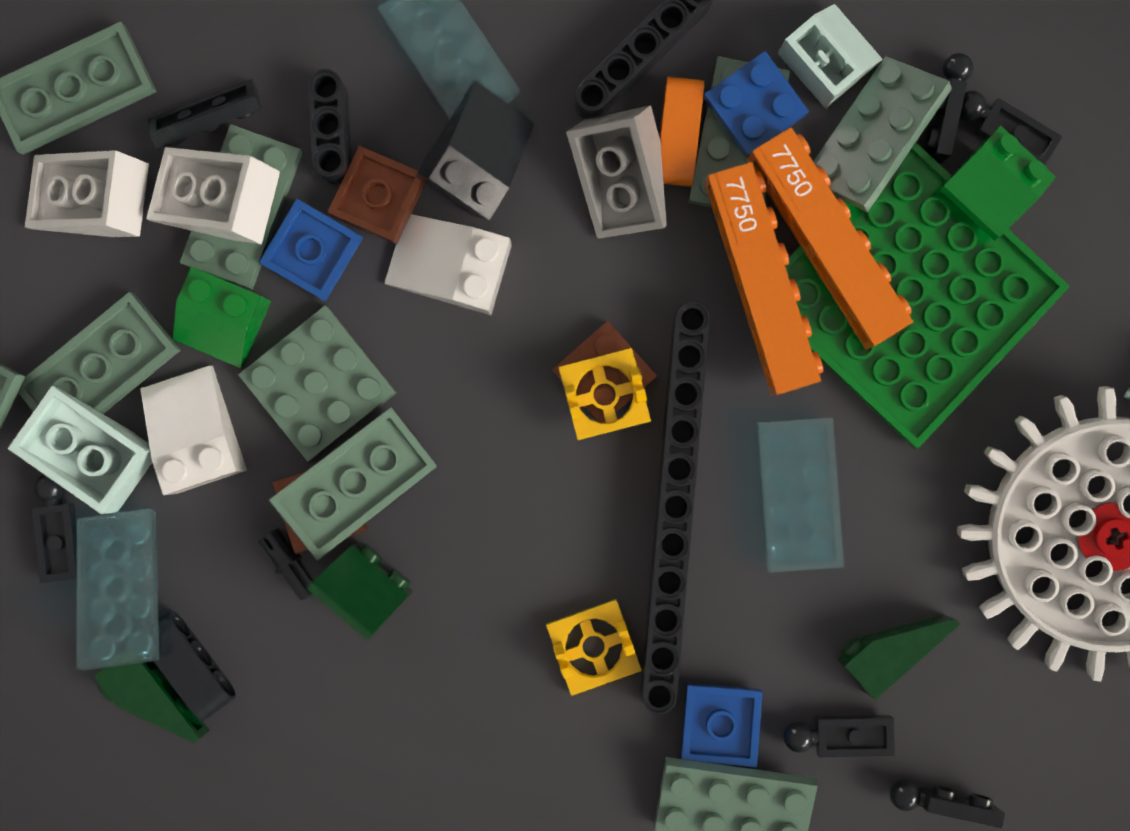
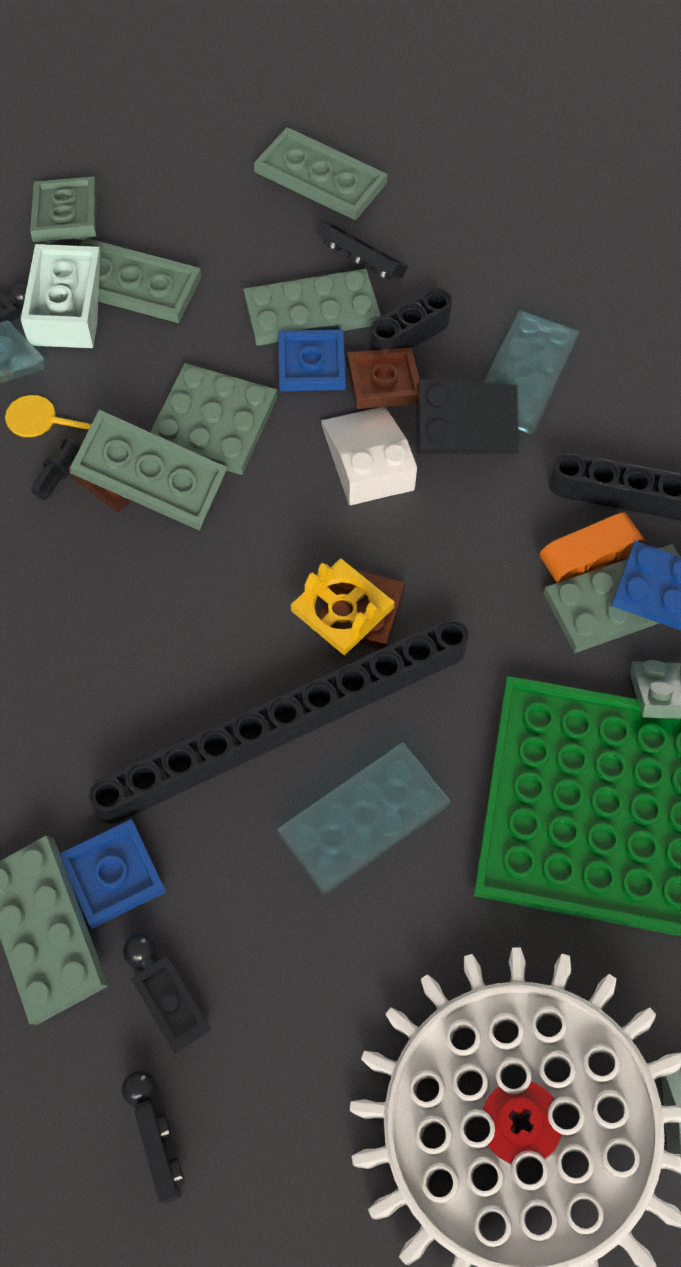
camera: 60 degrees right, 25 degrees down
(87, 193) = (255, 216): white slope -> none
(190, 432) = (117, 358): white slope -> none
(206, 551) = (34, 416): none -> yellow piece
(214, 194) = (309, 276): white slope -> none
(218, 317) = (220, 329): green slope -> none
(361, 589) = (63, 513): dark green slope -> none
(580, 682) = (139, 747): yellow piece -> none
(621, 171) = (529, 516): light grey slope -> none
(762, 278) = (520, 668): orange brick -> none
(830, 239) = (594, 702): orange brick -> none
(887, 655) = (266, 984): dark green slope -> none

